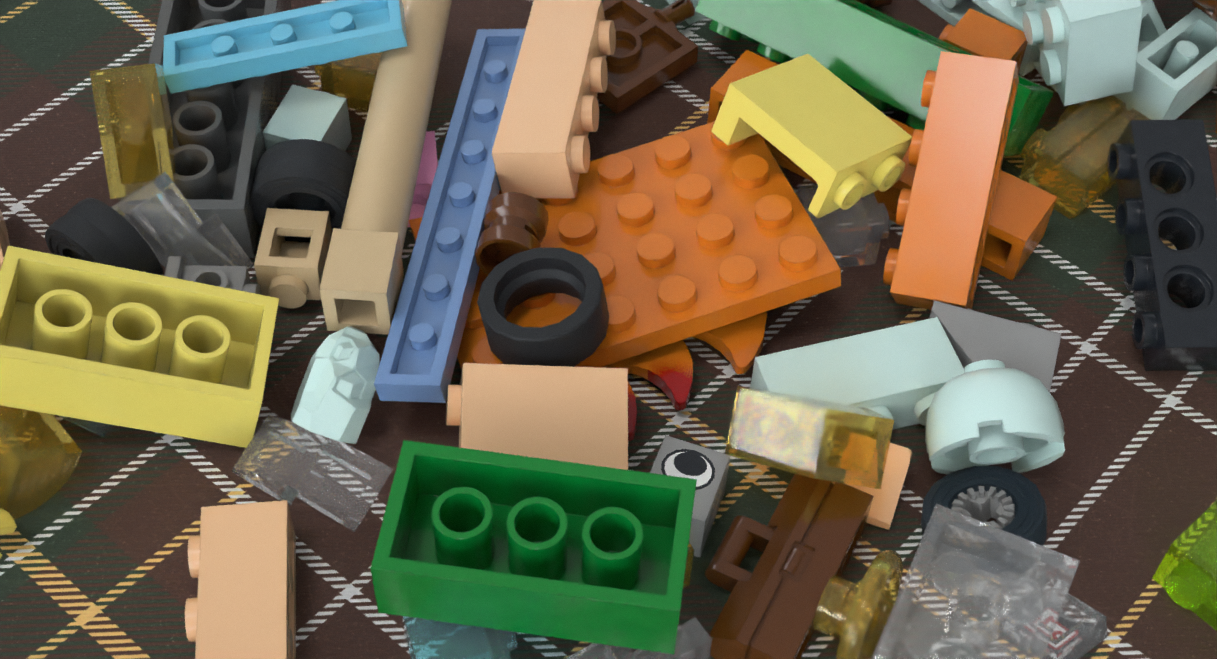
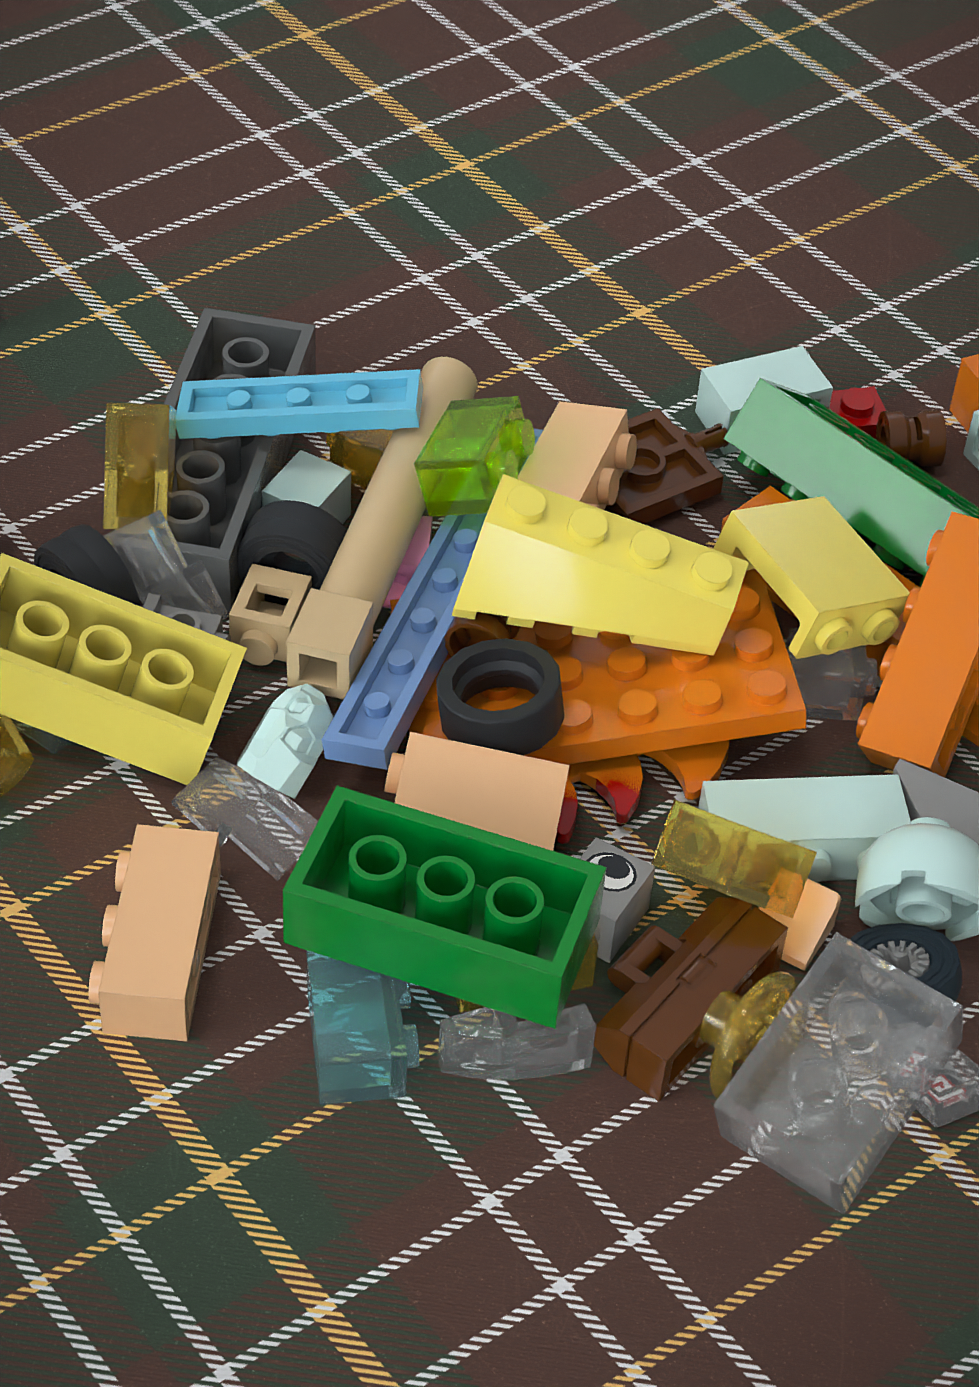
camera: 10 degrees right, 5 degrees down
(466, 66) = (471, 452): none -> clear neon green brick
(614, 167) = (596, 572): none -> light yellow wedge

